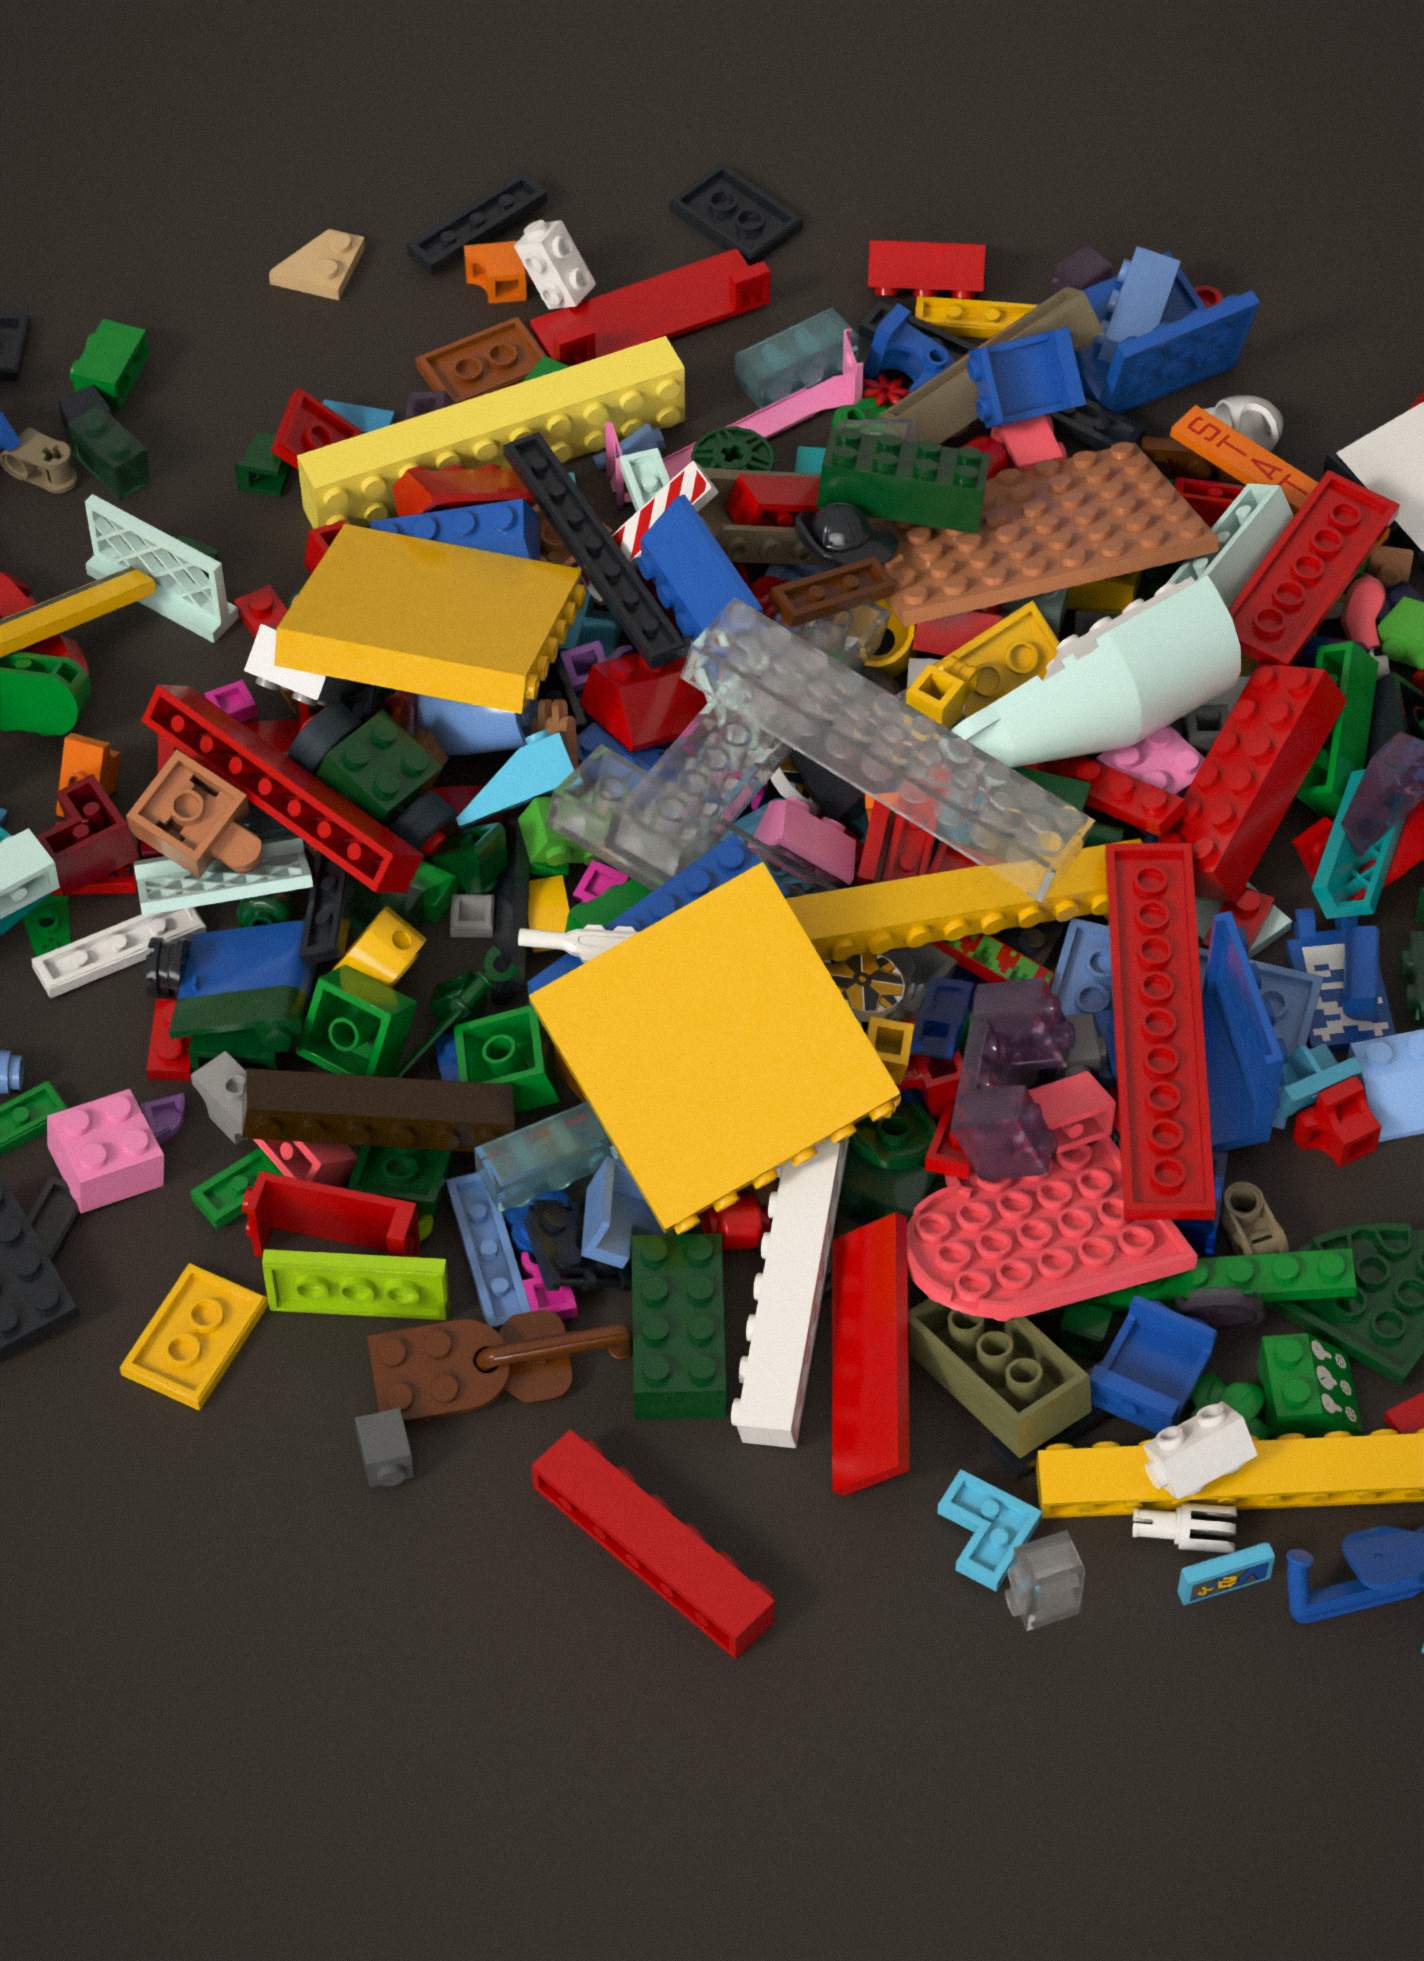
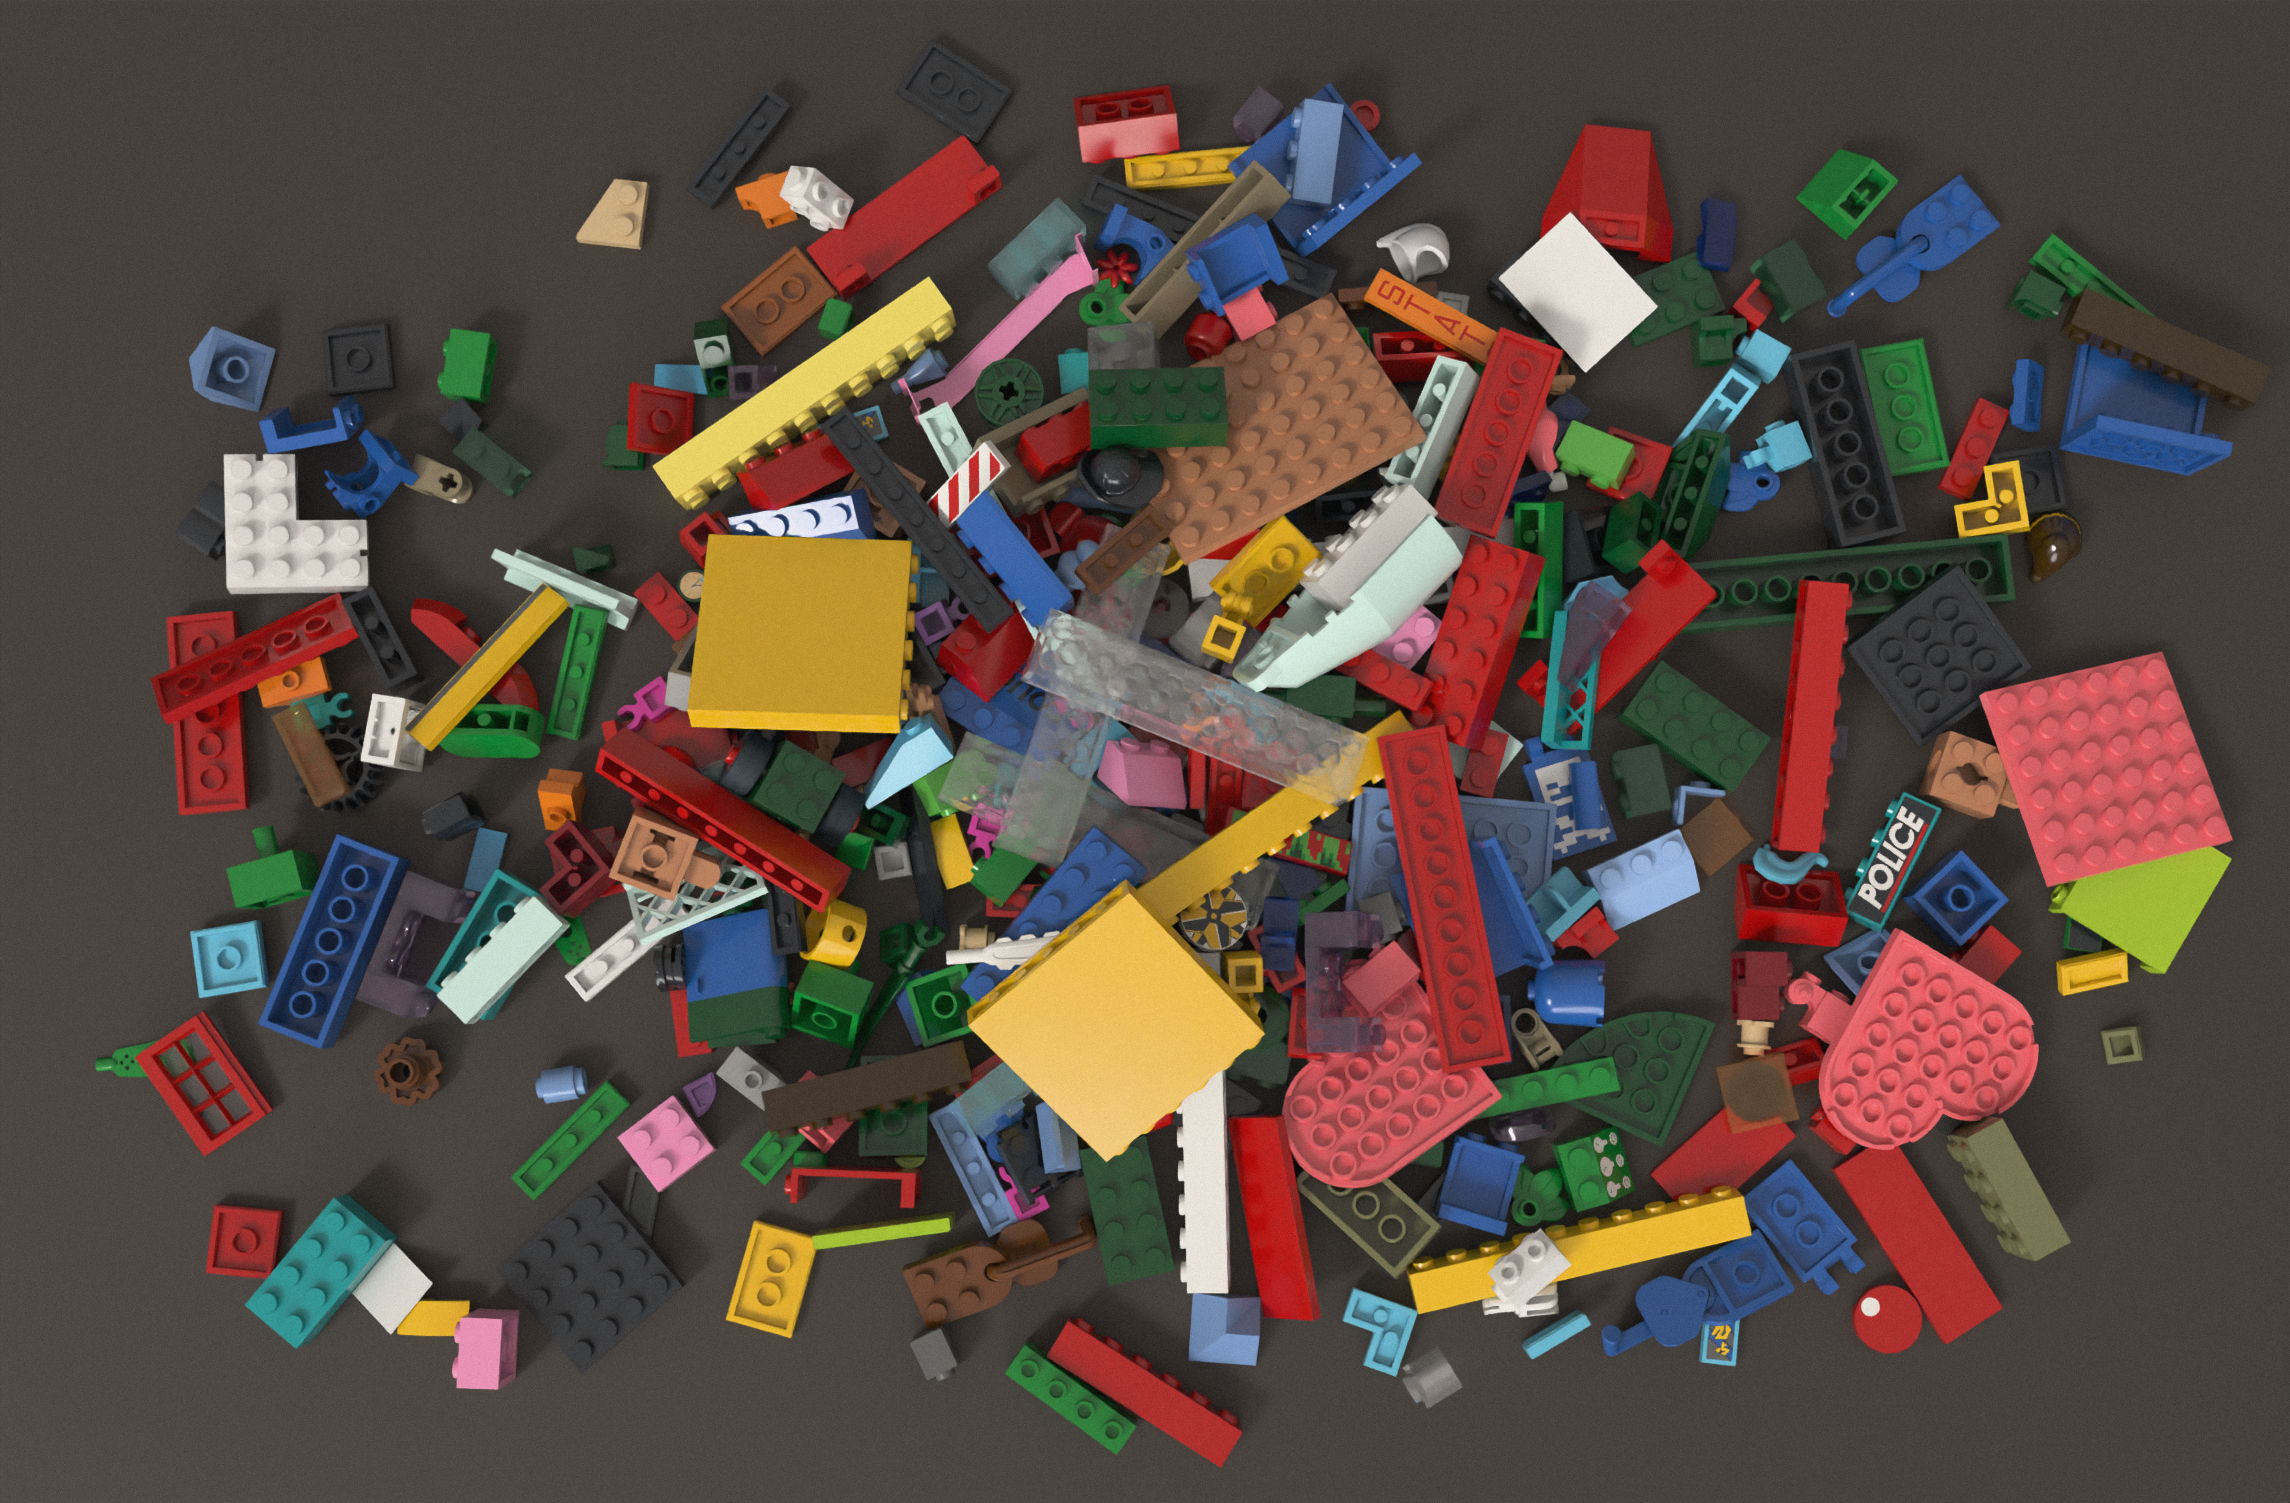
camera: 10 degrees left, 30 degrees up
(144, 664) = (577, 672): none -> green tile
(395, 384) = (715, 351): none -> dark green slope
(553, 1529) = (1071, 1397): none -> green brick
(777, 1494) = (1224, 1328): none -> medium blue slope
(1307, 1176) = (1570, 992): none -> blue cylinder

